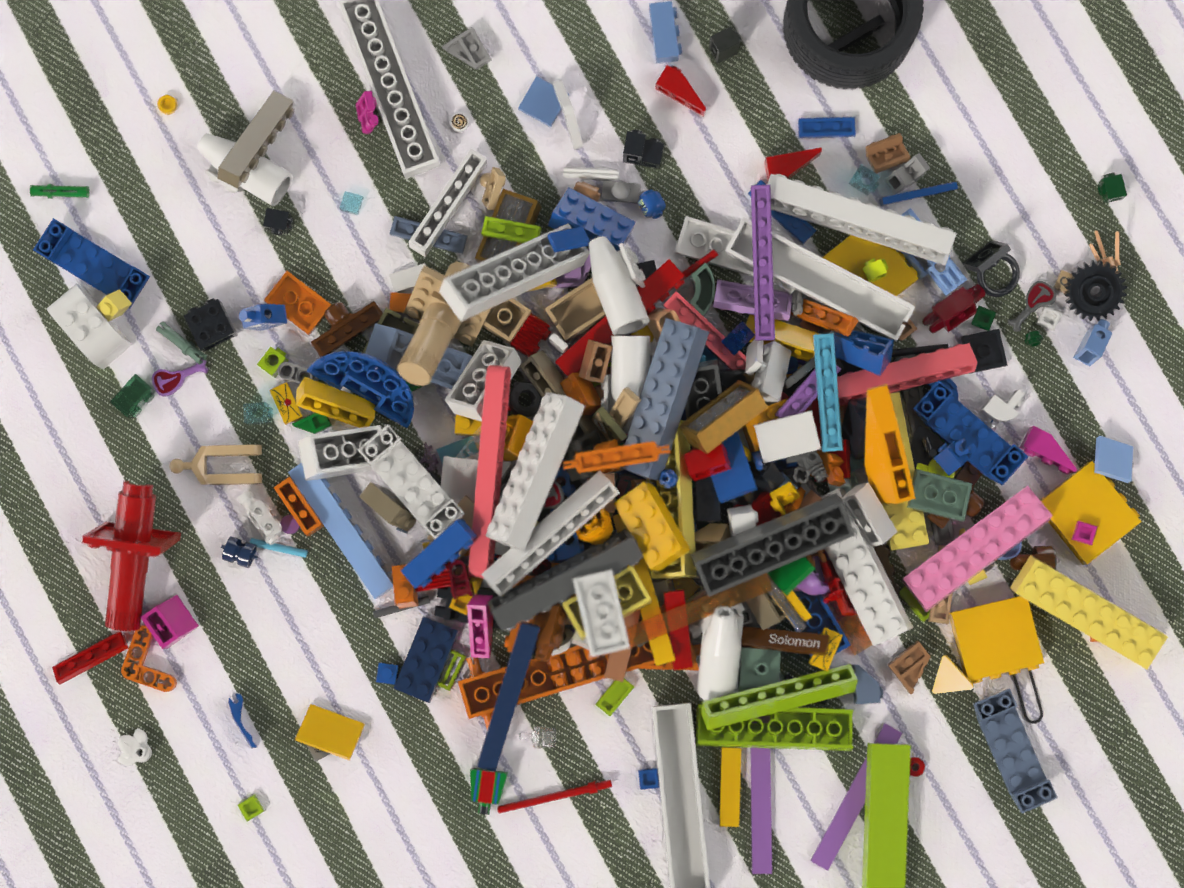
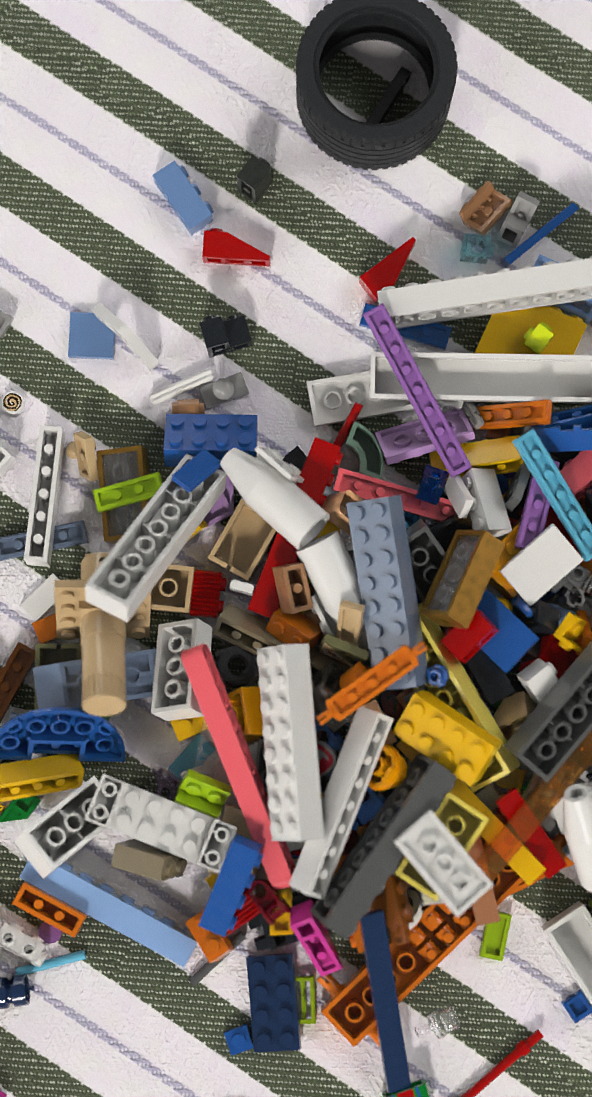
camera: 30 degrees left, 0 degrees up
(452, 478) = (202, 793): none -> lime bracket
(651, 204) = (264, 387): blue head -> none
(826, 127) = (406, 213): blue tile -> none

